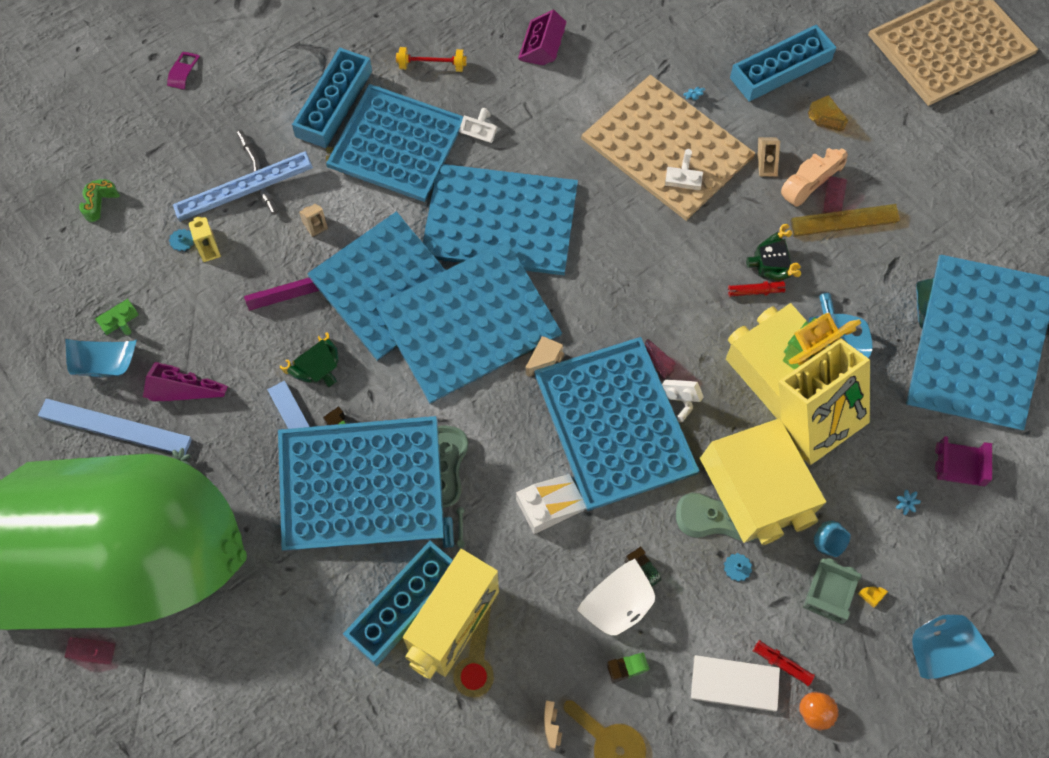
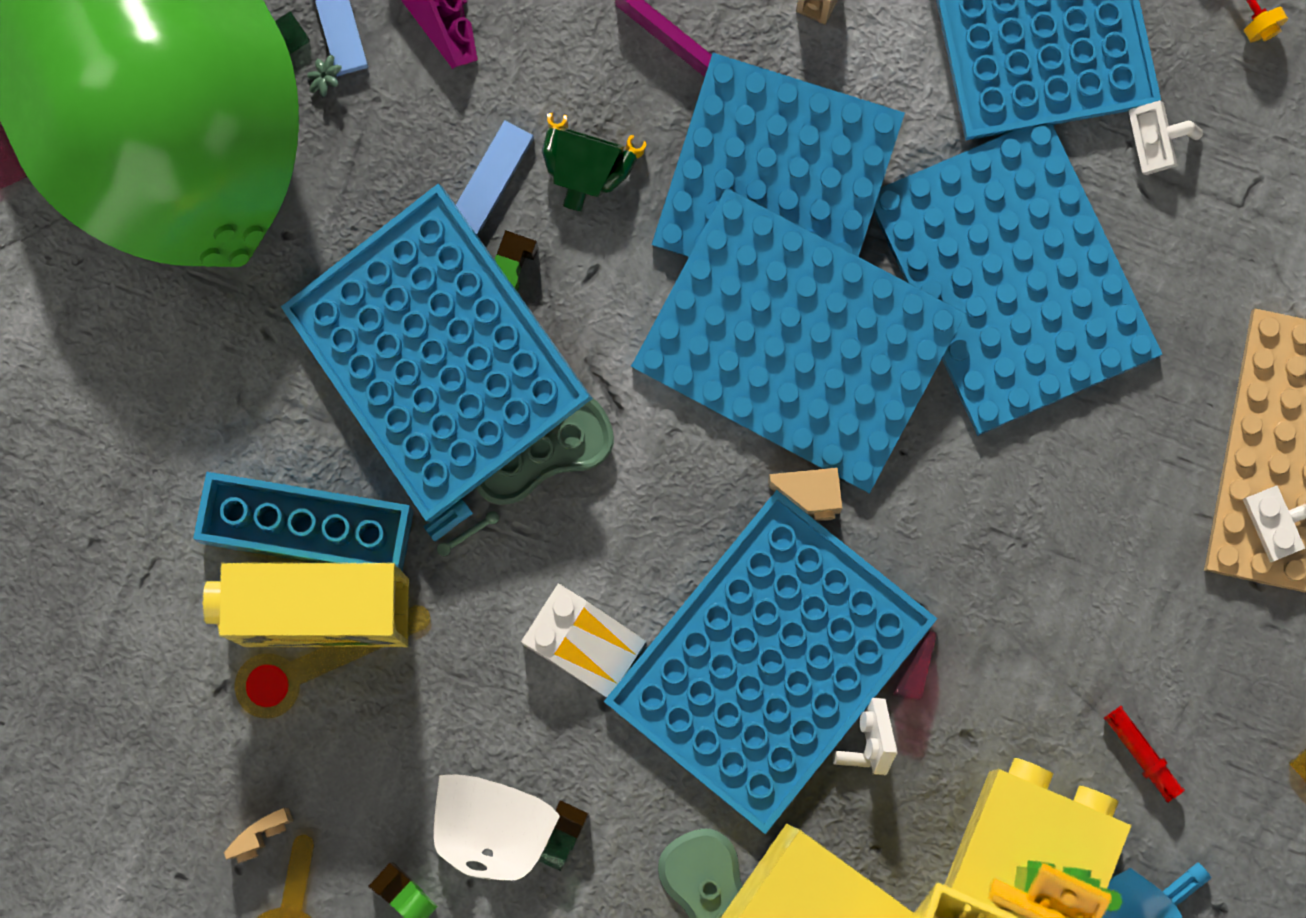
camera: 60 degrees right, 15 degrees up
(773, 257) = (1217, 752): torso -> none

